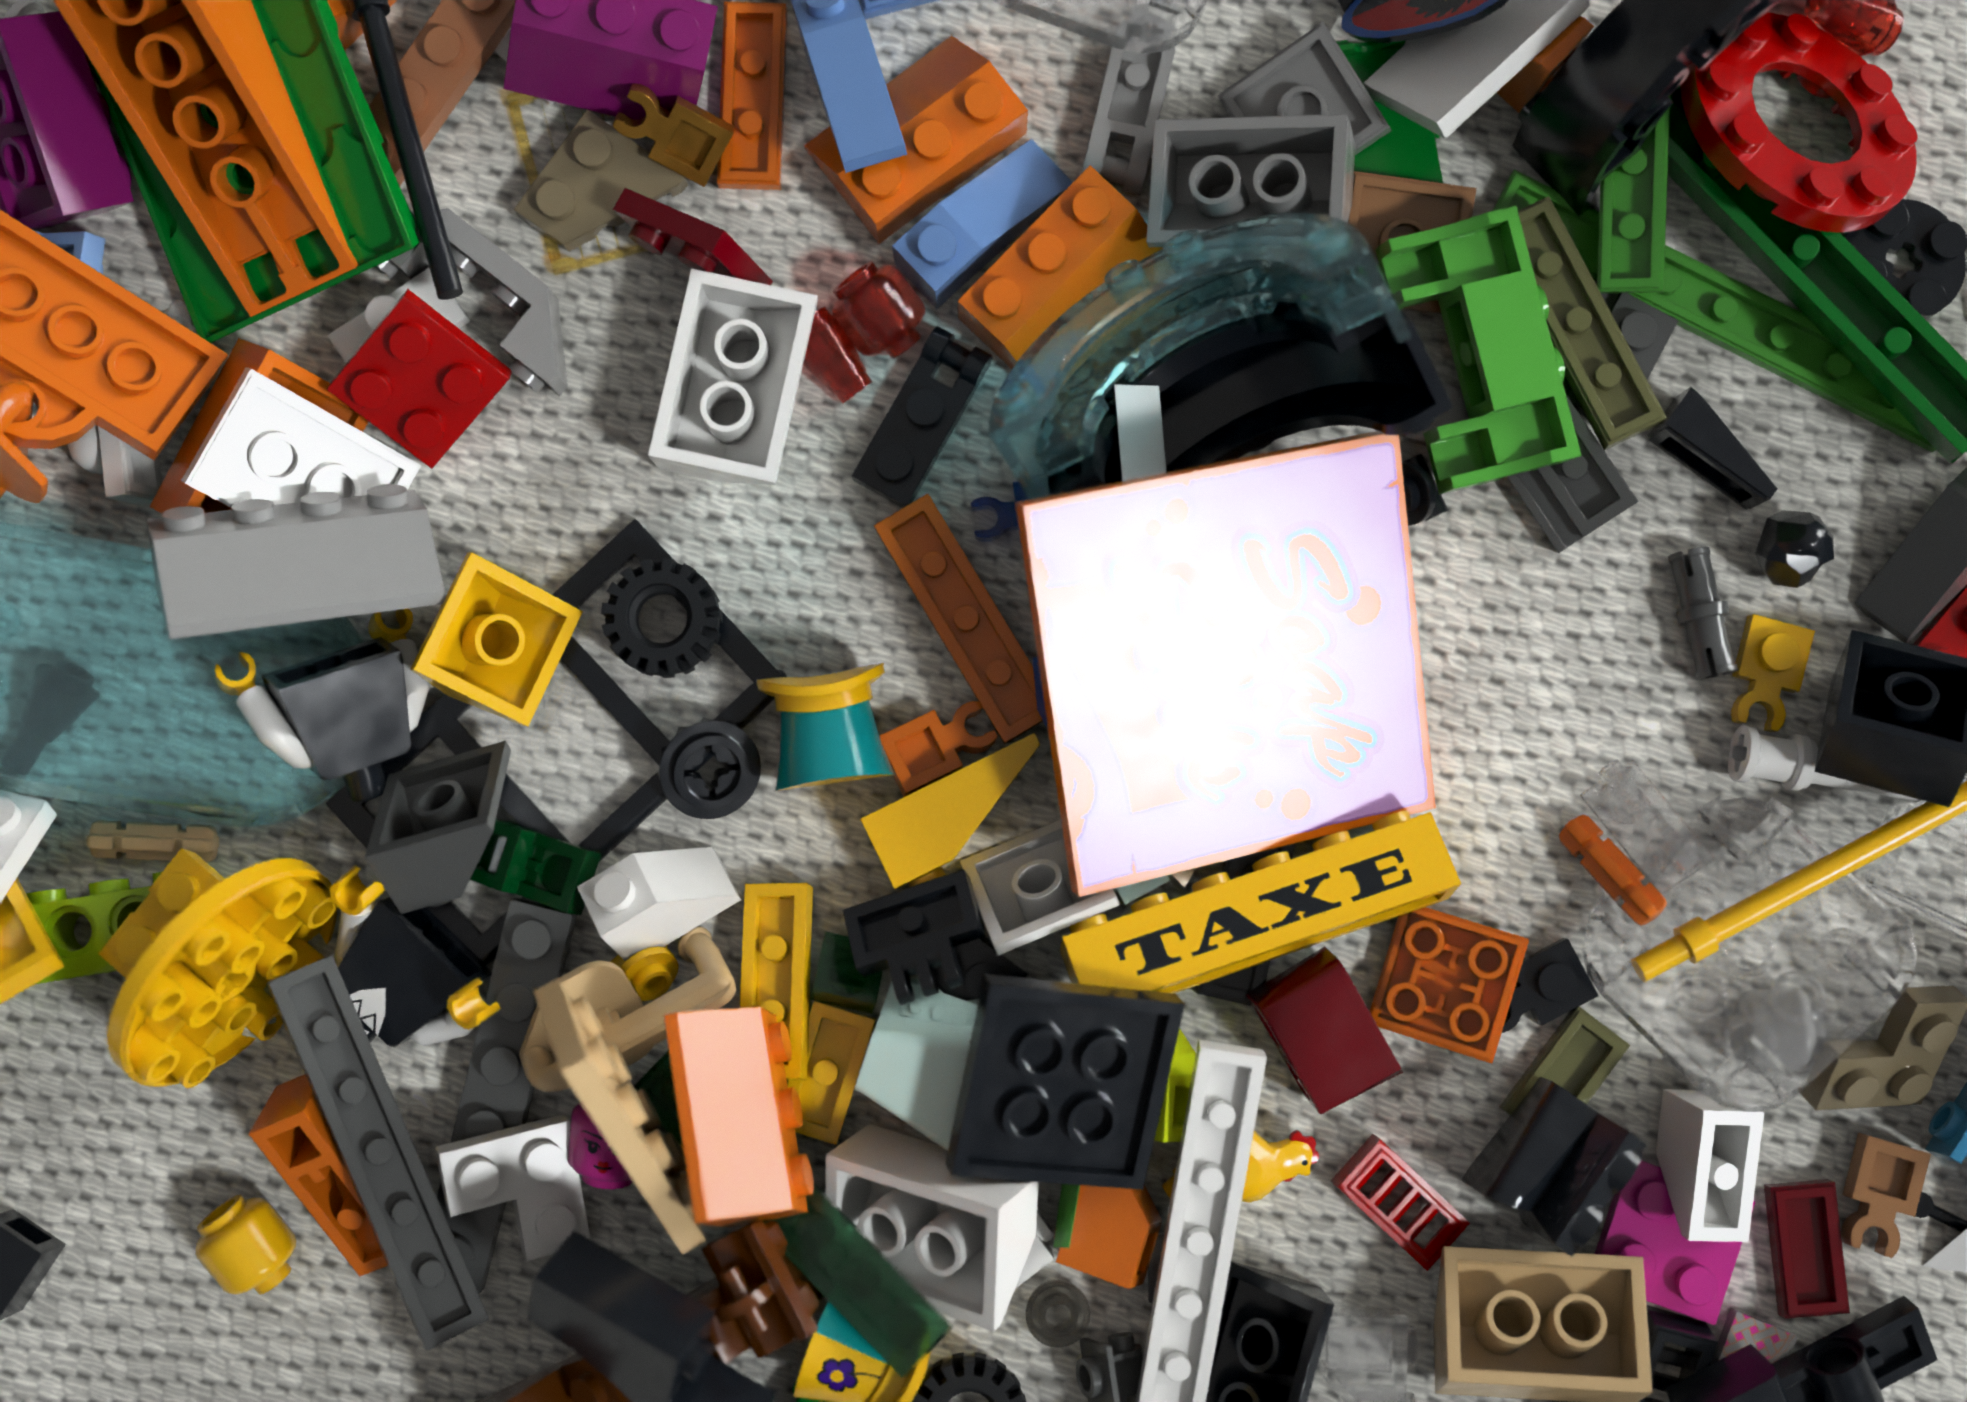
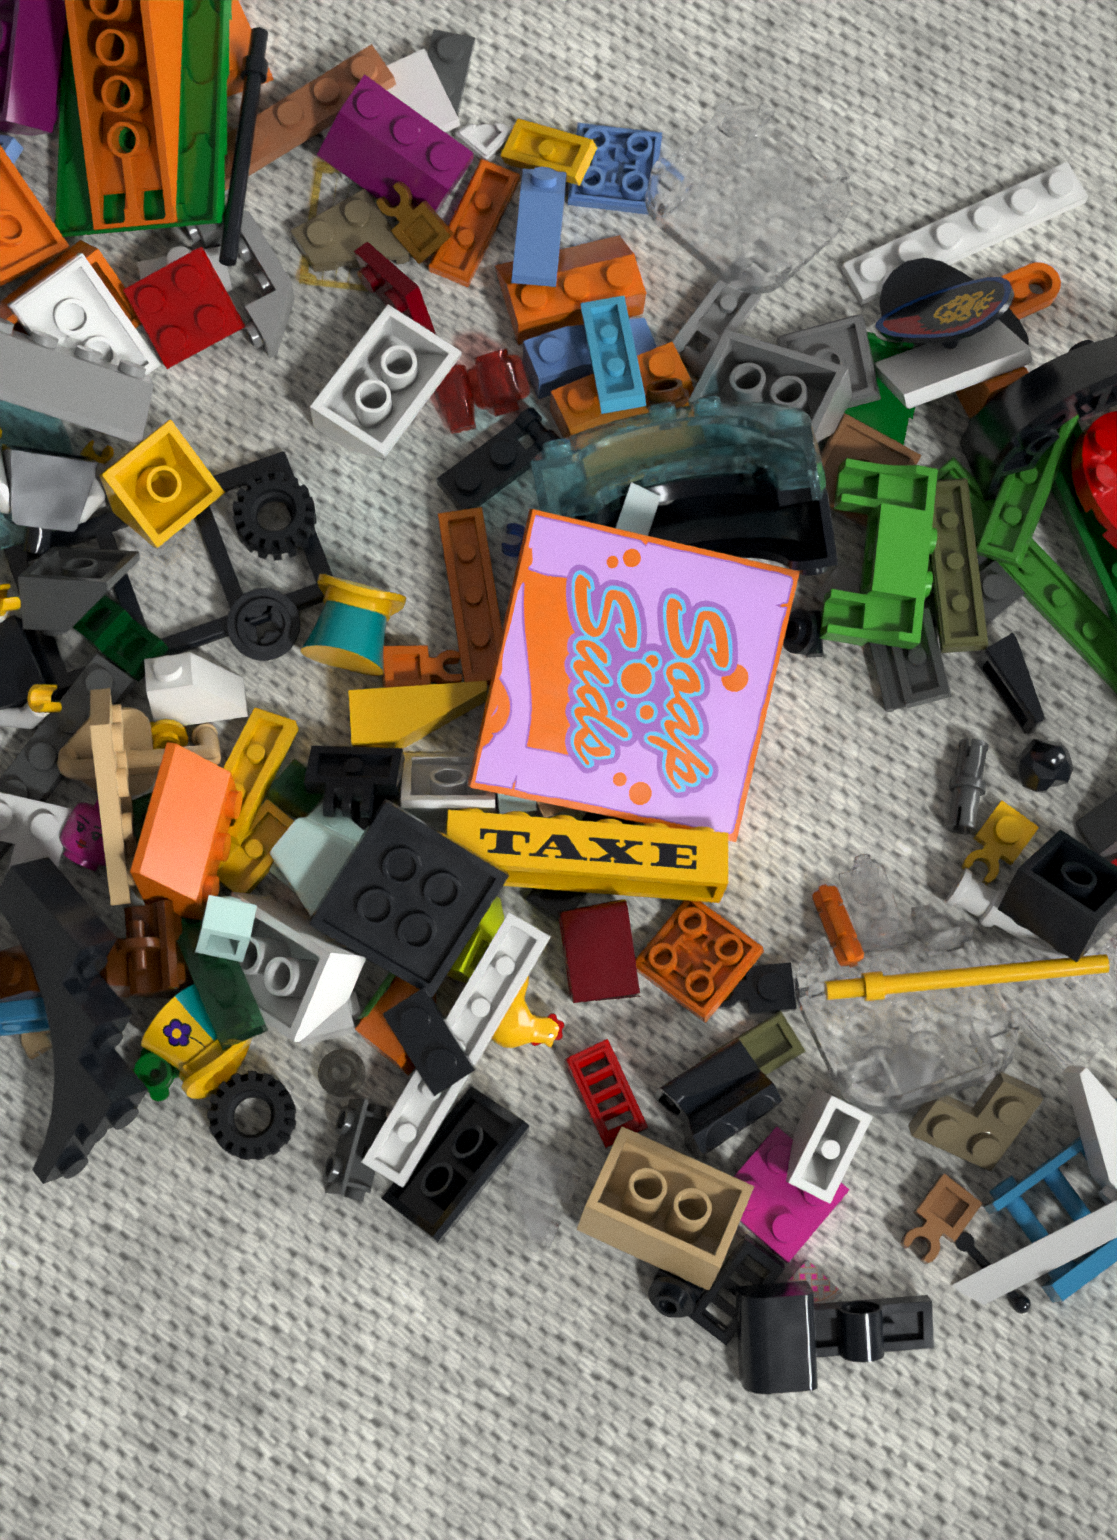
camera: 15 degrees right, 10 degrees down
(845, 1220) = (226, 928): none -> light aqua plate
(1024, 221) = (613, 354): none -> medium azure plate
(1114, 244) = (666, 391): none -> reddish brown plate
(1164, 1251) = (429, 1041): none -> black plate
(1806, 1248) = (873, 1238): dark red tile -> none

